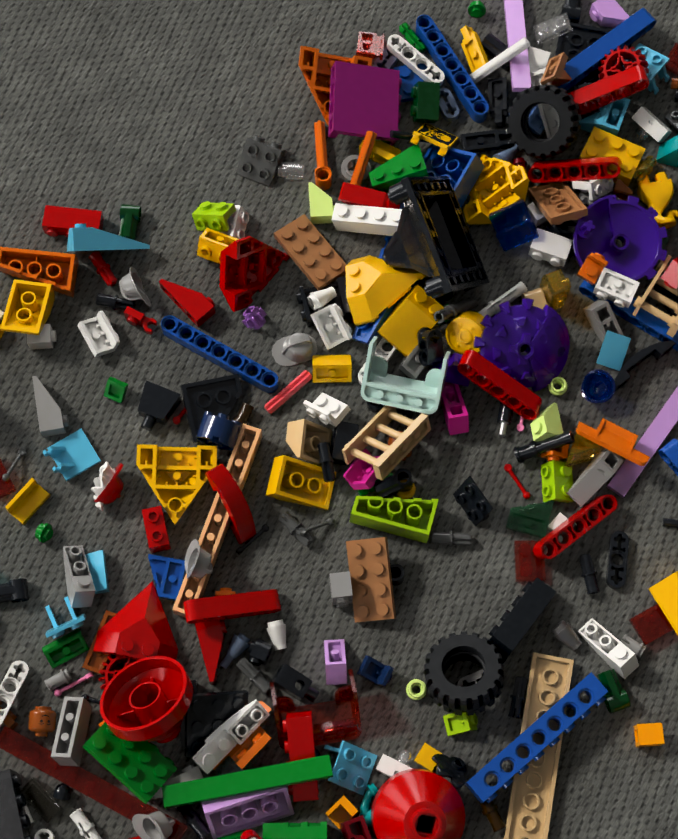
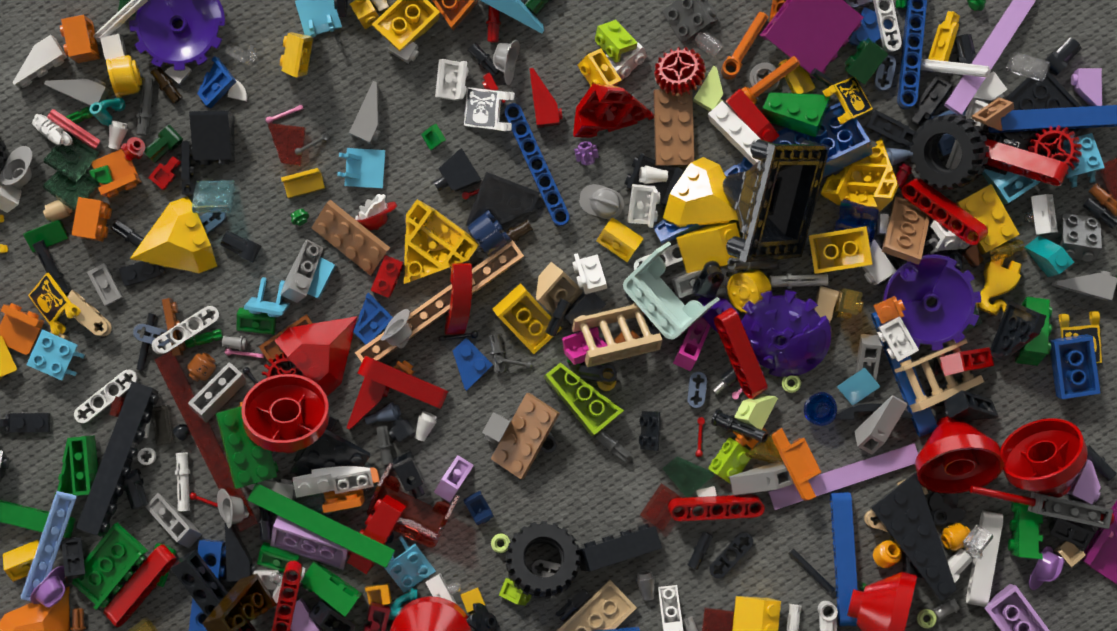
camera: 35 degrees right, 15 degrees up
(27, 695) = (204, 338): none -> green axle
(101, 517) = (350, 237): none -> medium nougat plate
(143, 338) = (483, 108): none -> flag
(279, 553) = (470, 363): none -> blue wing
(284, 204) = (691, 71): none -> red gear
(288, 392) = (572, 234): coral axle -> none
(489, 441) = (692, 388): none -> sand blue beam
(517, 252) = (840, 250): none -> yellow slope
(655, 365) = (879, 425): none -> light grey slope

